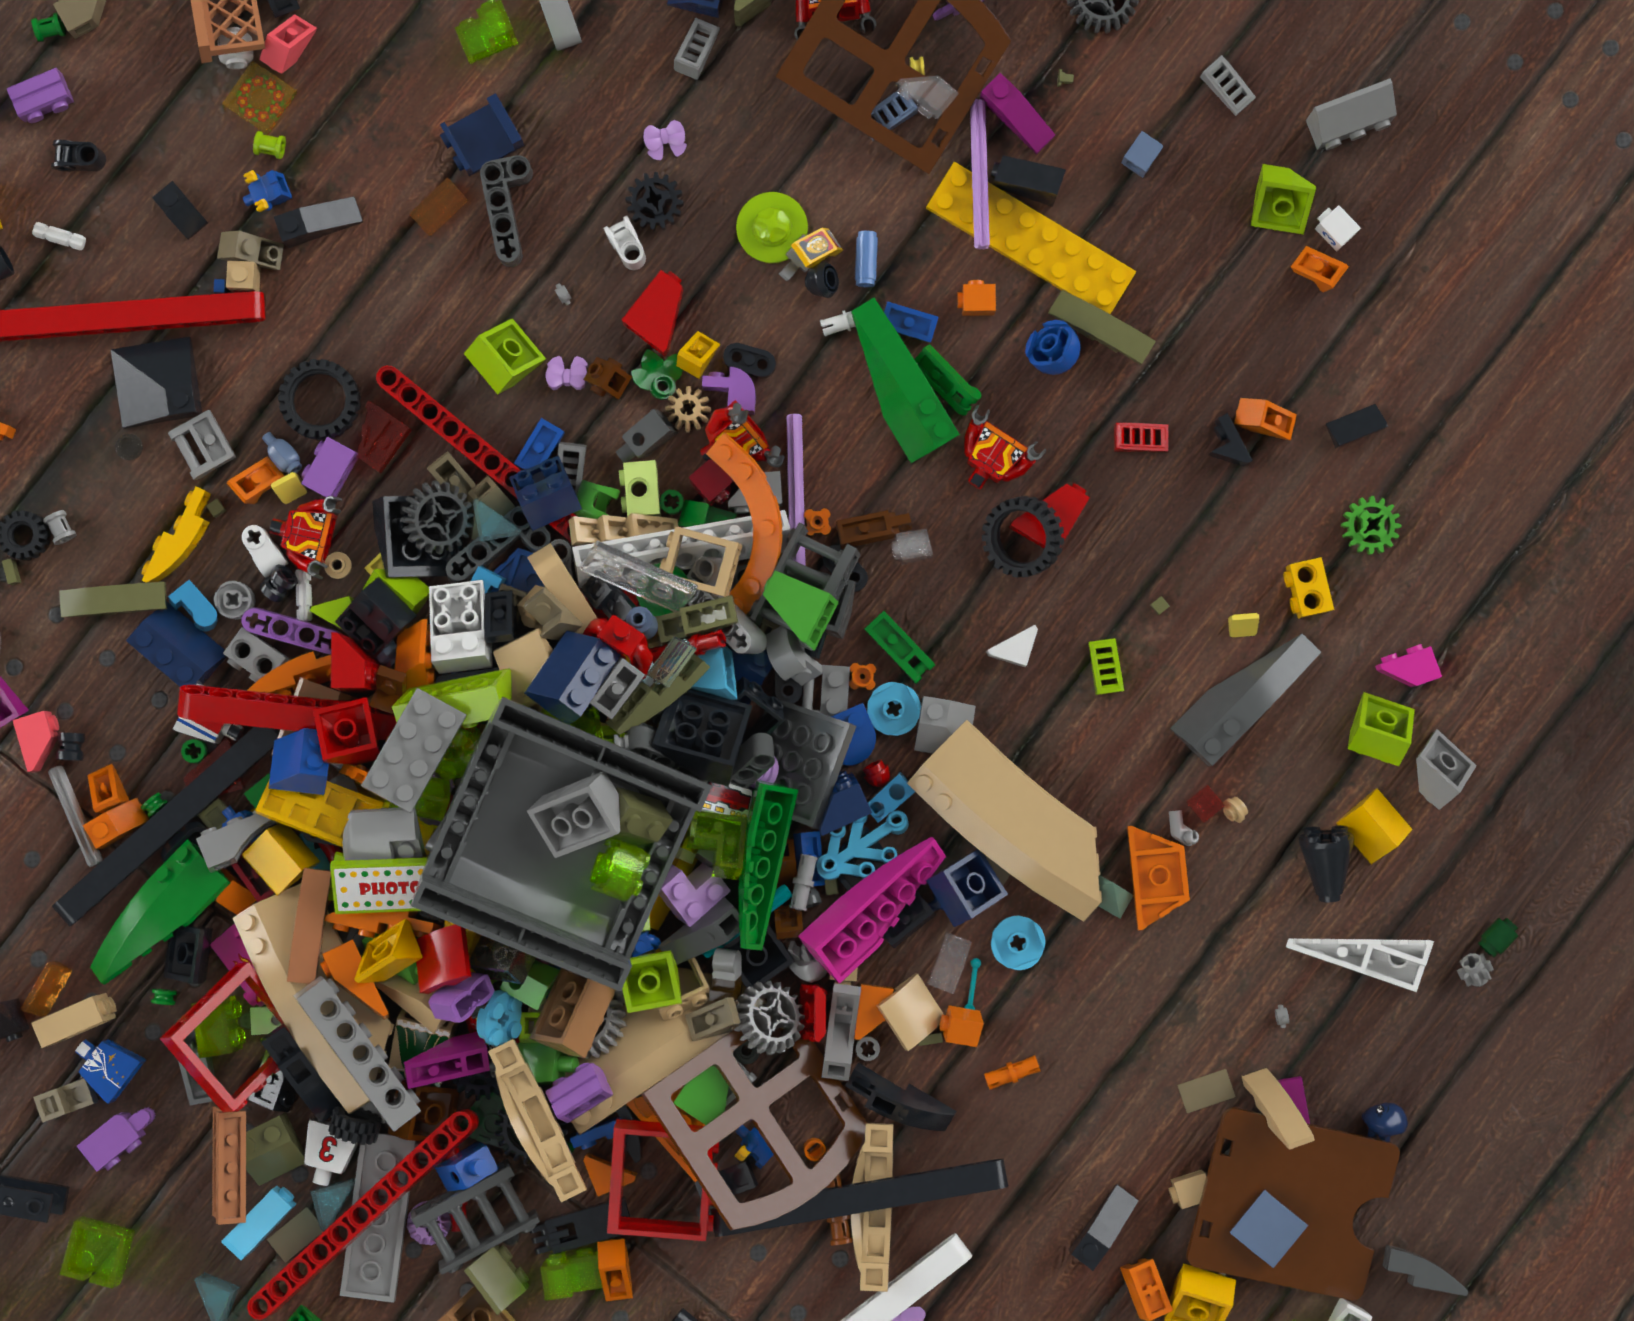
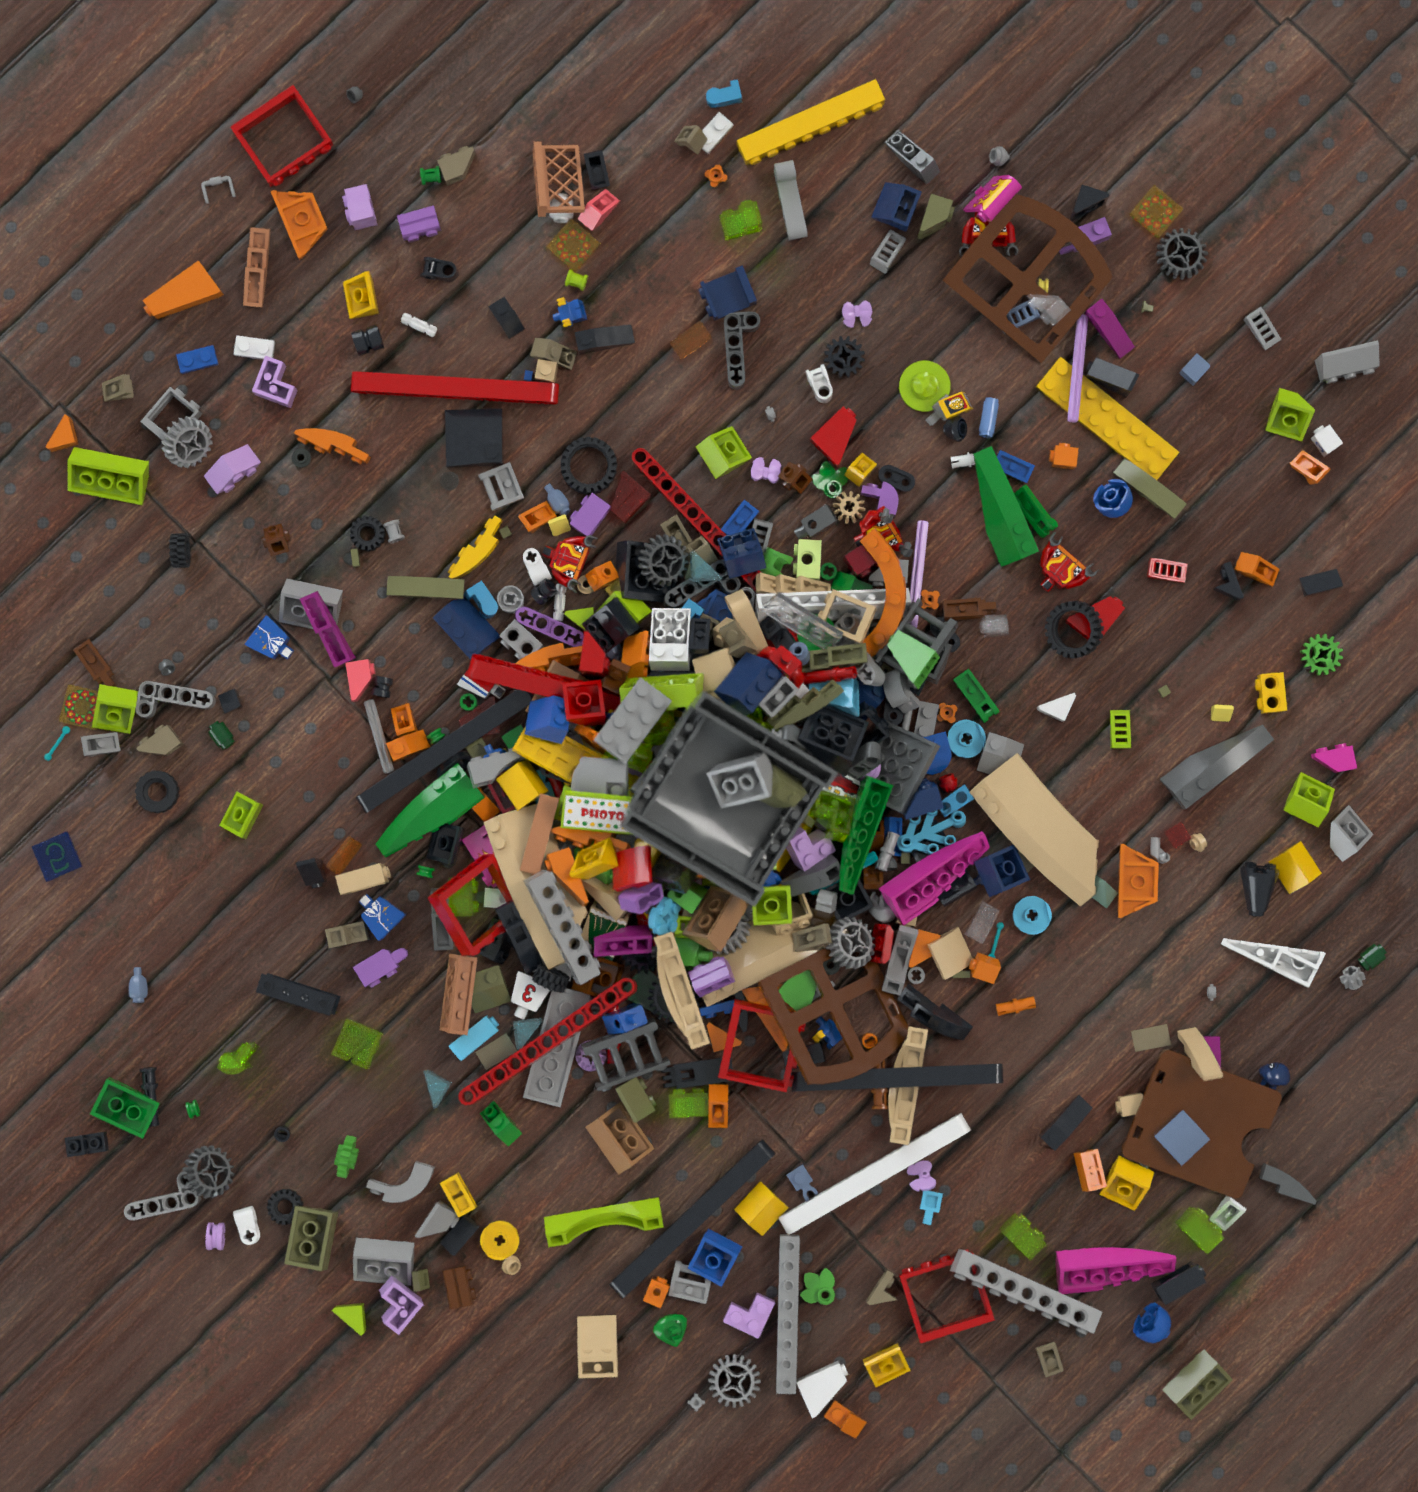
camera: 10 degrees right, 0 degrees up
(356, 551) = (602, 576): none -> orange brick
(619, 869) = (764, 822): clear neon green brick -> none
(671, 661) = (817, 683): clear light blue piece -> none

